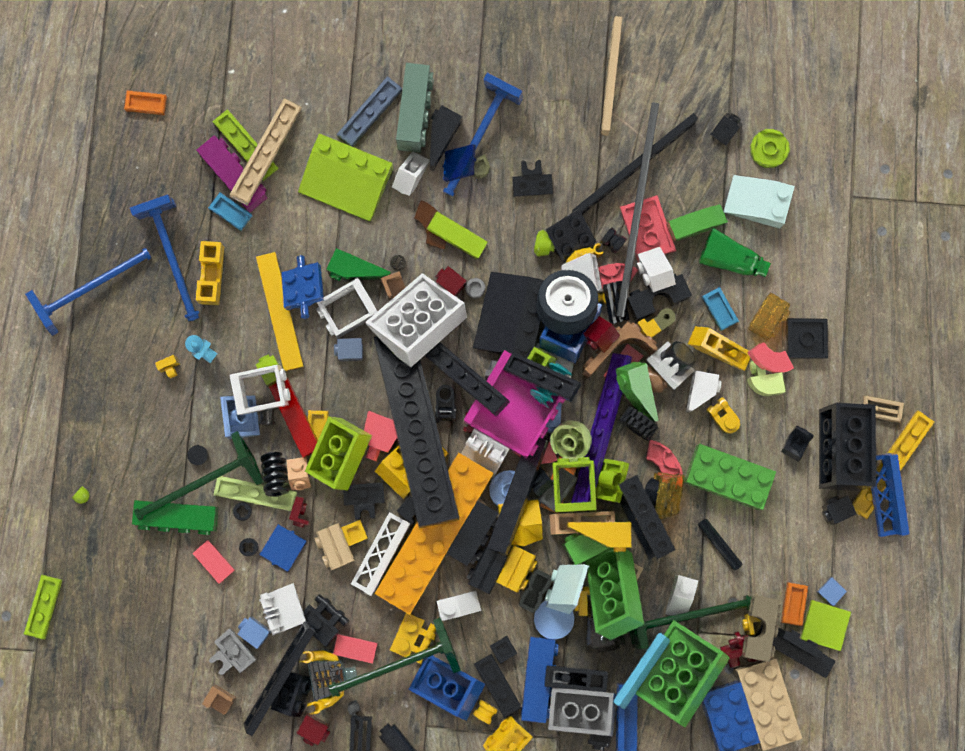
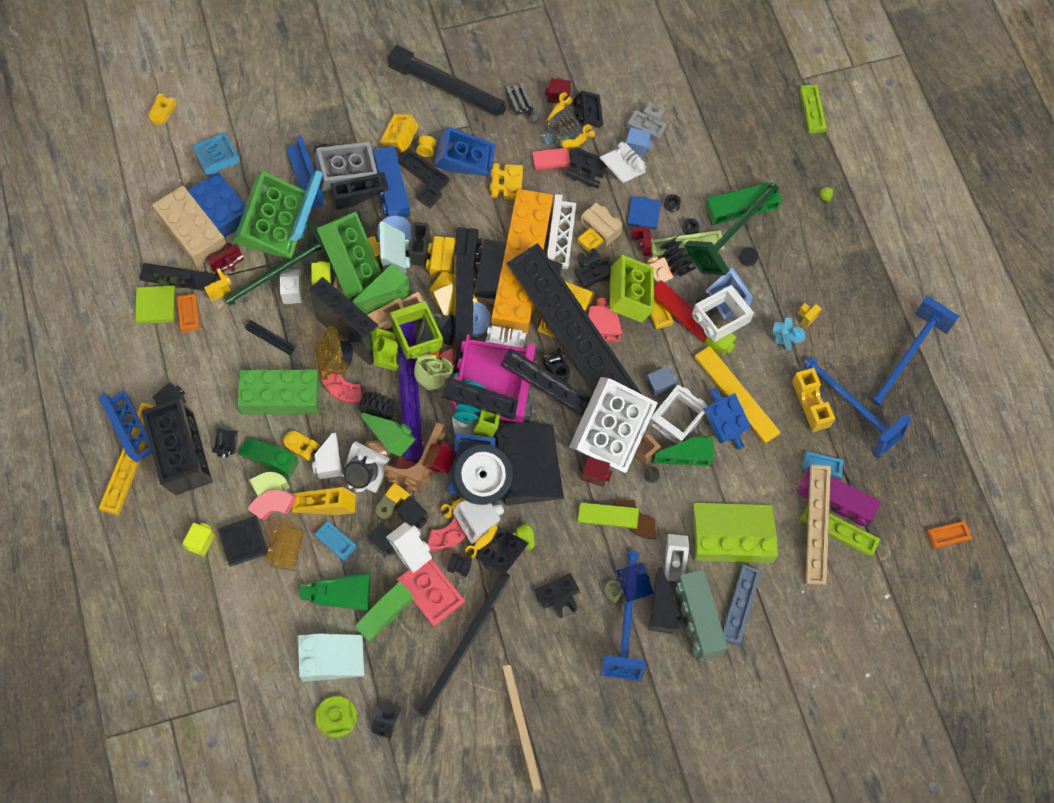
camera: 160 degrees right, 15 degrees down
(213, 561) = (695, 183): coral tile -> none
(219, 699) = (643, 91): medium nougat panel -> none
(278, 678) = (602, 113): black tile -> none
(442, 647) = (478, 174): dark green tile -> none
(458, 605) = (481, 213): white slope -> none
(475, 288) = (571, 477): light grey tile -> none
(610, 534) = (373, 292): yellow slope -> none
(611, 302) = (428, 497): black tile -> none
(637, 209) = (447, 601): dark grey piece -> none
(648, 592) = (320, 270): none -> neon yellow brick
(759, 414) = (270, 457): none -> green slope
(767, 612) = (213, 287): dark tan arch -> none
(832, 591) = (157, 333): medium blue tile -> none
(848, 355) = (199, 539): none -> neon yellow brick
(887, 402) = (152, 511): tan tile -> none

